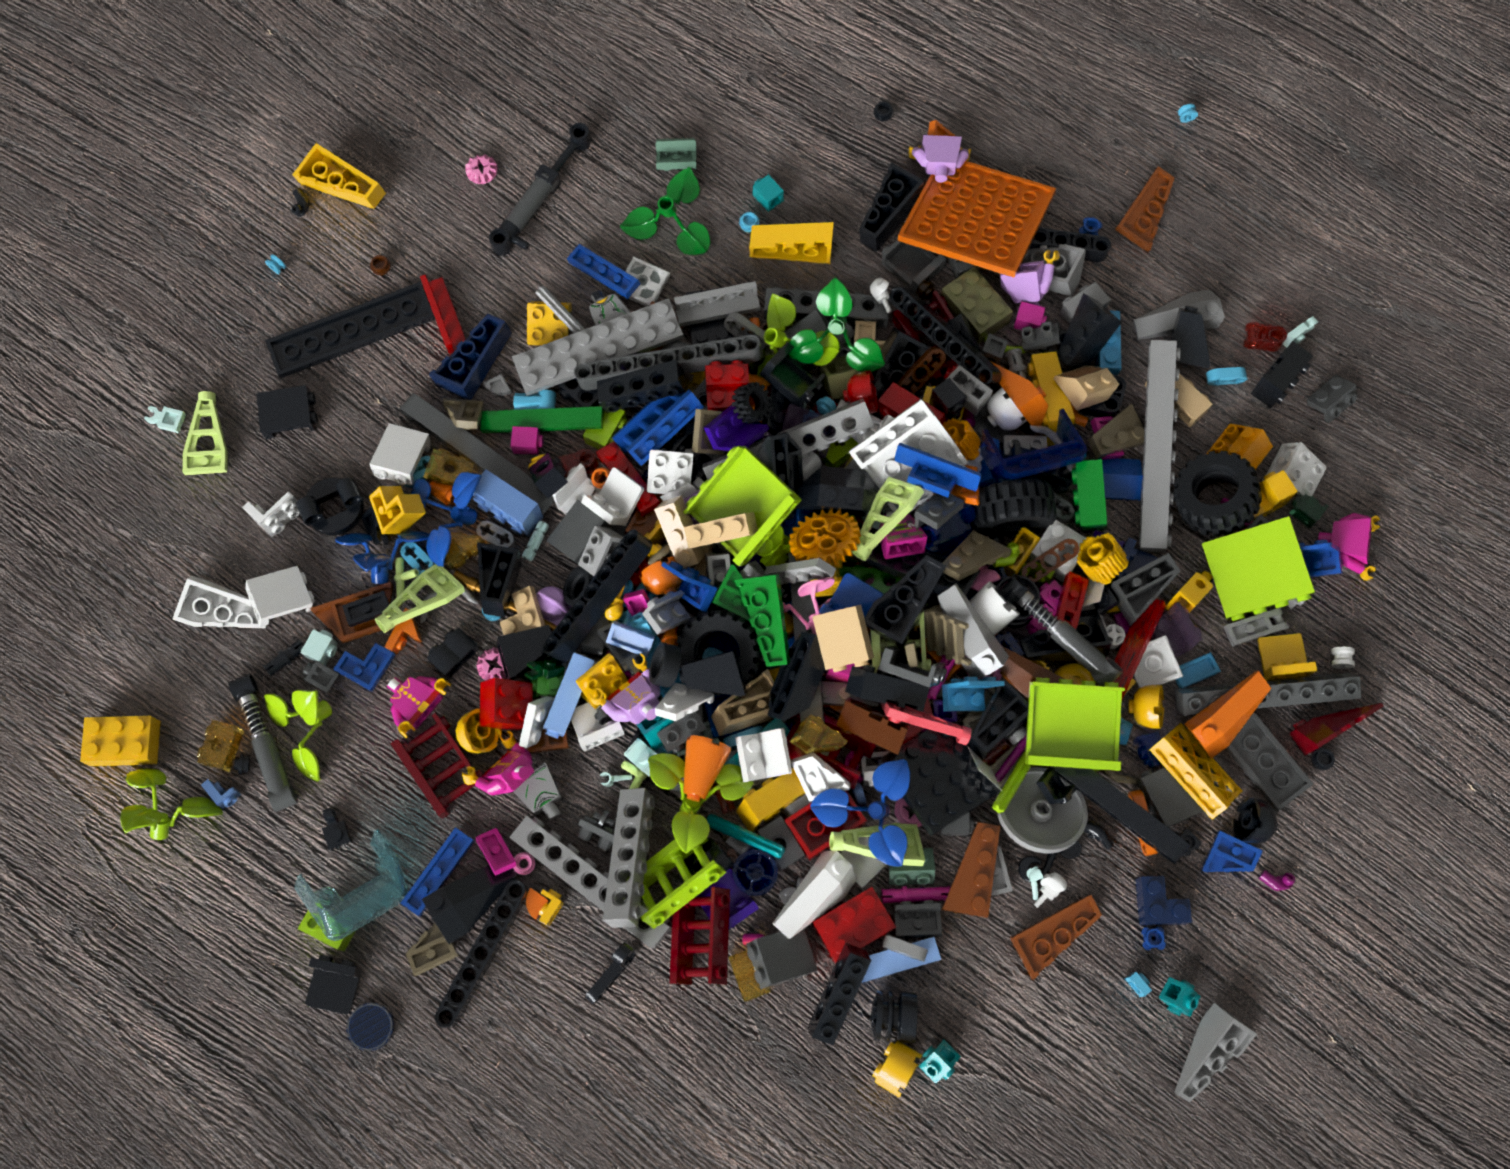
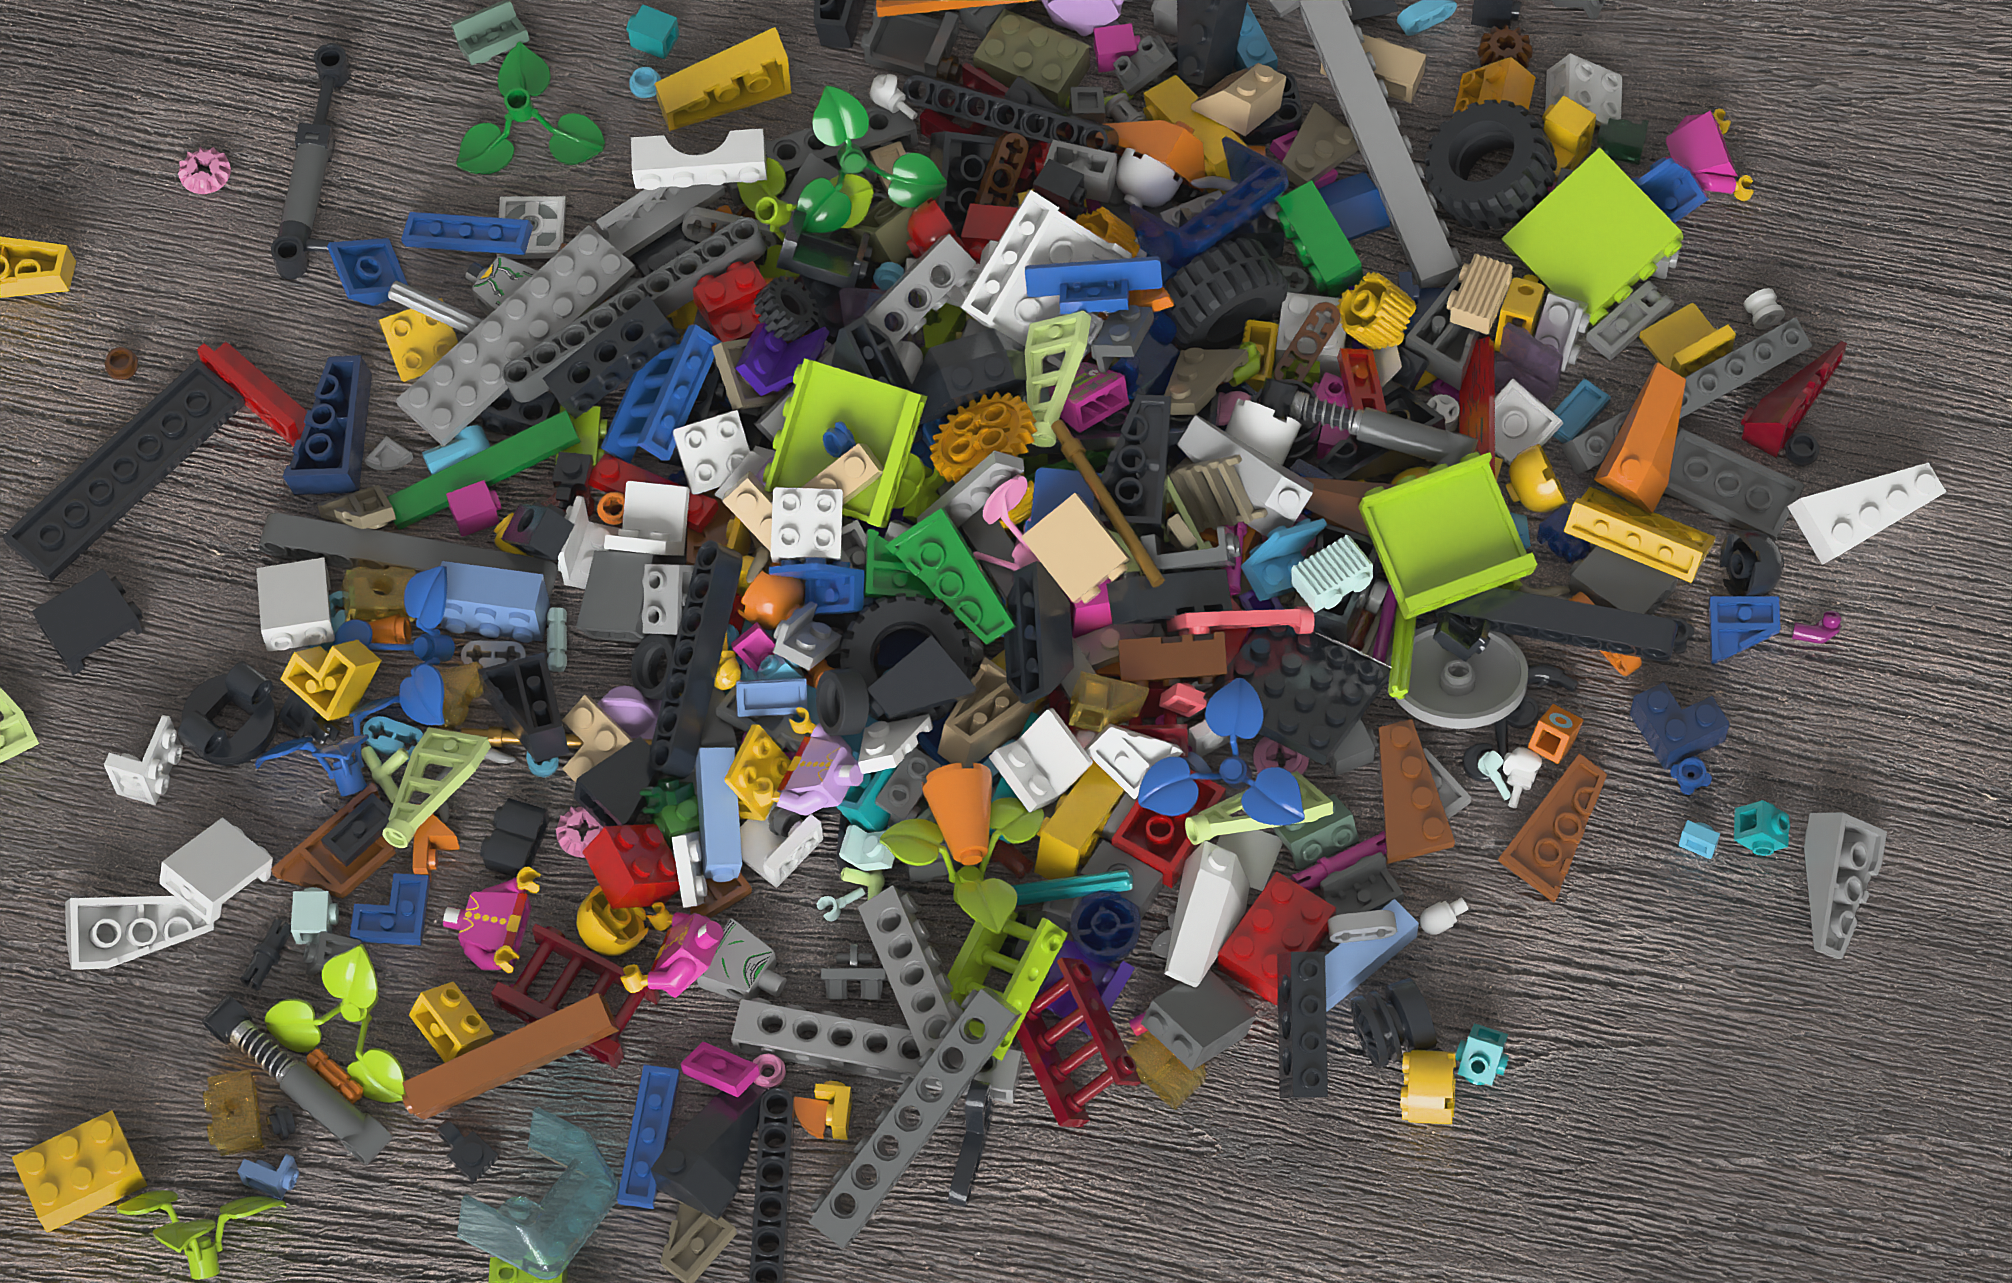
camera: 25 degrees left, 10 degrees down
(285, 749) = (334, 1075): none -> orange axle
(361, 750) = (449, 1021): none -> yellow brick
(380, 789) = (509, 1057): none -> dark orange brick
(516, 982) = (998, 1019): none -> brick
(539, 268) = (366, 269): none -> blue slope
(586, 446) = (571, 474): none -> black plate
(693, 547) = (806, 524): none -> white bracket
(738, 503) = (838, 440): none -> blue plate
(770, 296) = (736, 160): none -> white arch
(868, 752) = (1183, 699): none -> coral plate
(872, 574) = (1075, 453): none -> pearl gold bar
(957, 957) = (1441, 916): none -> white cylinder
(992, 719) = (1332, 574): none -> light aqua brick
(1082, 875) = (1555, 733): none -> orange brick
(1170, 577) = (1480, 293): none -> tan brick
(1210, 614) = (1561, 325): none -> light grey bracket
(1258, 414) = (1504, 44): none -> reddish brown gear
(1339, 819) = (1853, 513): none -> white wedge

